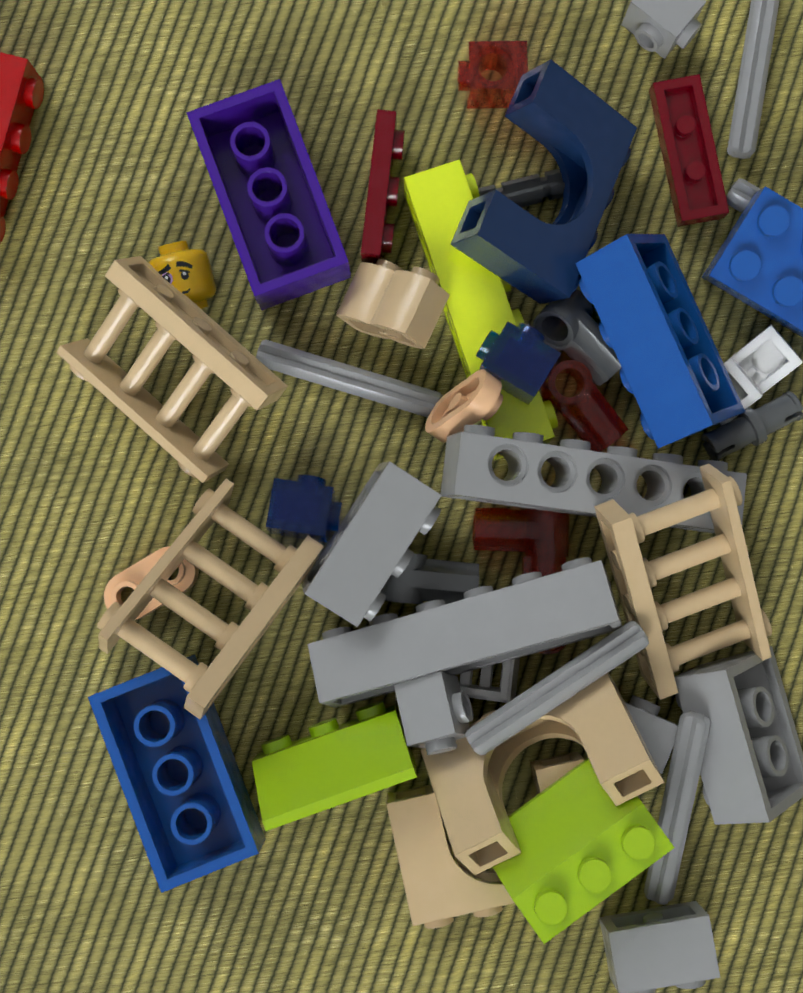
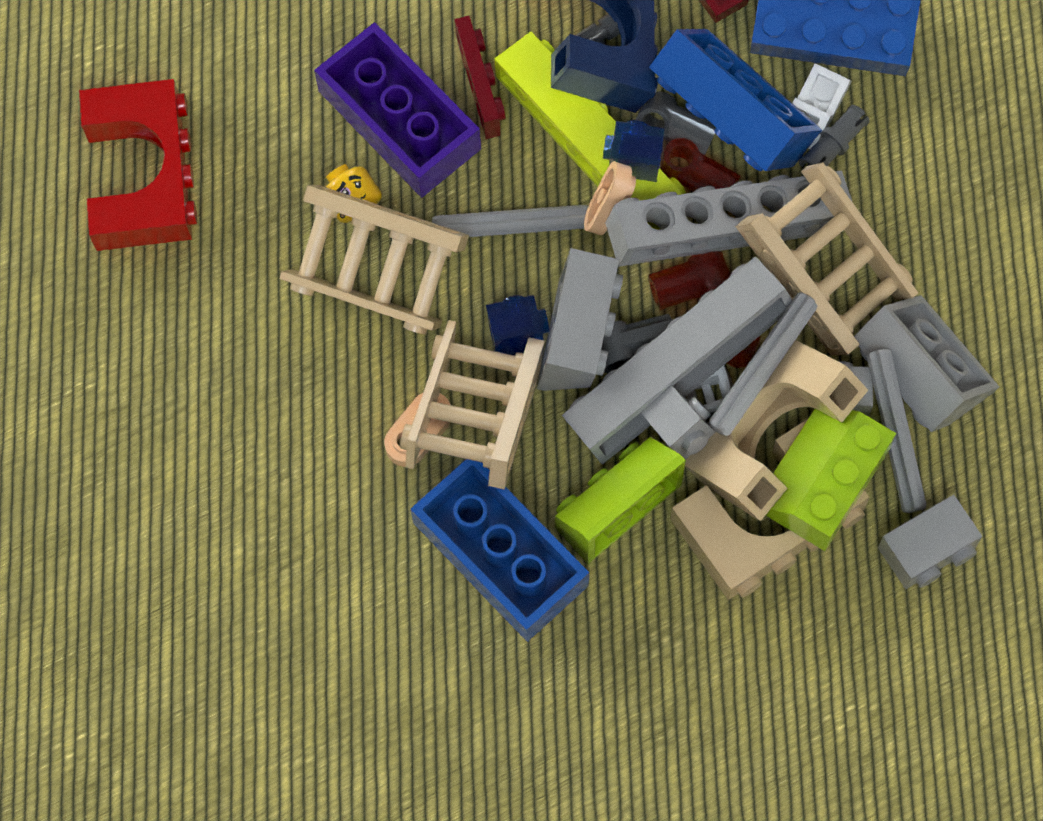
camera: 15 degrees left, 15 degrees down
(394, 303) = (523, 150): tan brick -> none

